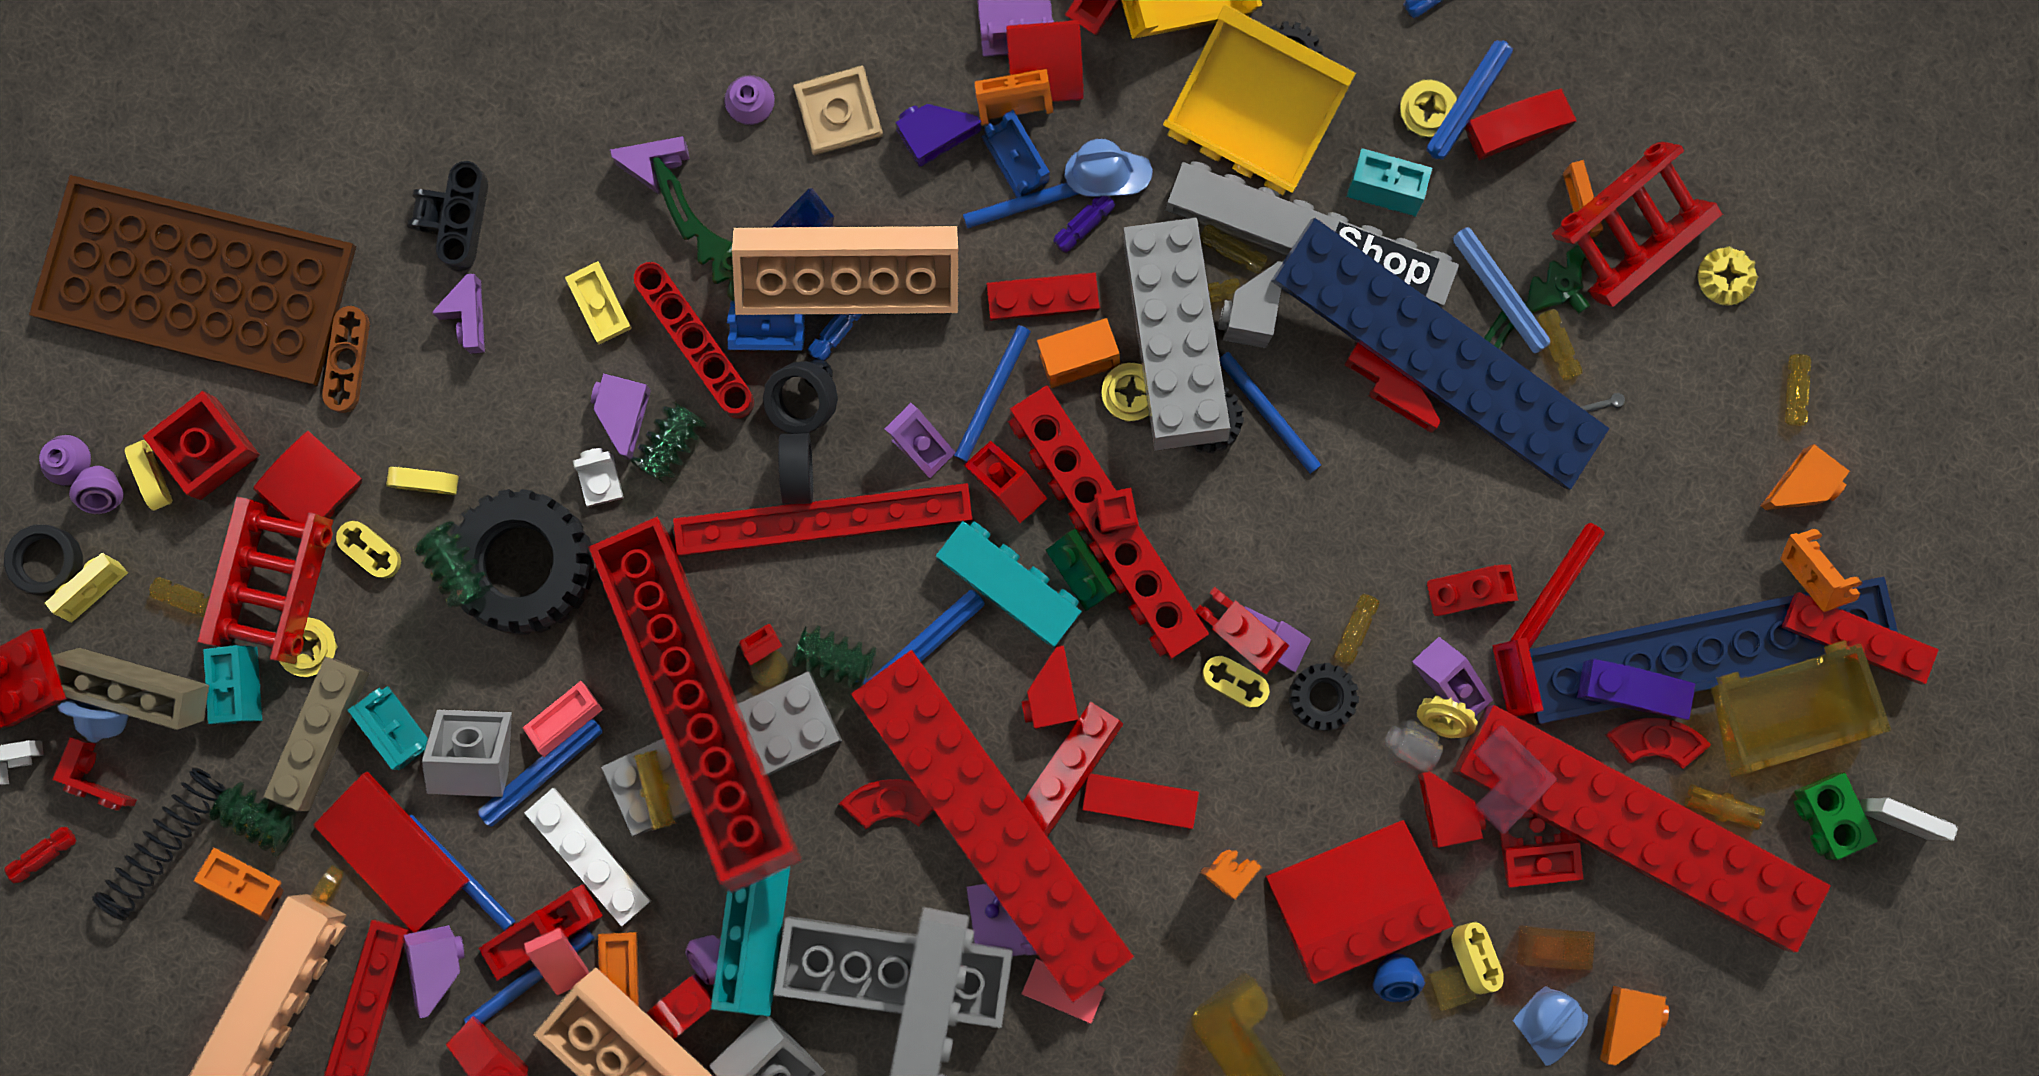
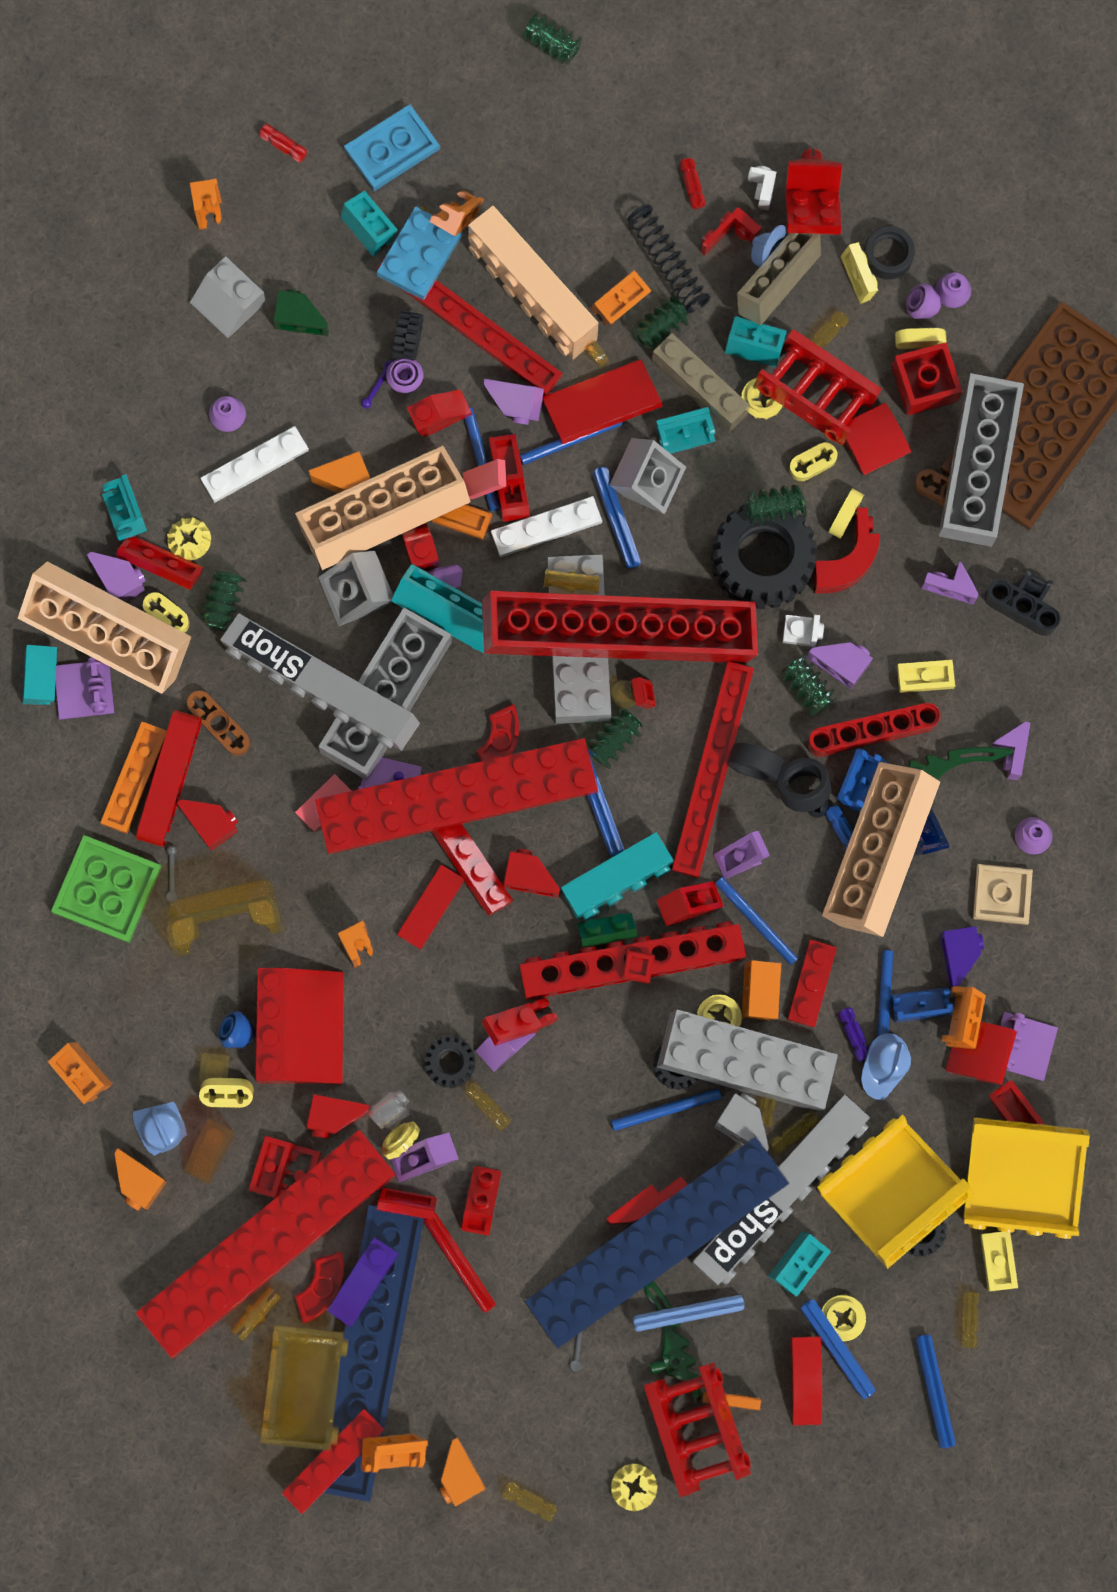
camera: 110 degrees right, 5 degrees down
(286, 333) = (981, 460): none -> light grey brick
(505, 455) = (844, 573): none -> red arch
(562, 718) = (646, 544): coral tile -> none
(1241, 674) = (481, 1000): light yellow beam -> none
(1520, 782) = (337, 1165): clear pink plate -> none
(1560, 345) = (632, 1339): clear yellow axle -> none
(1842, 810) = (216, 1395): green brick -> none
(1908, 819) = (193, 1435): white tile -> none

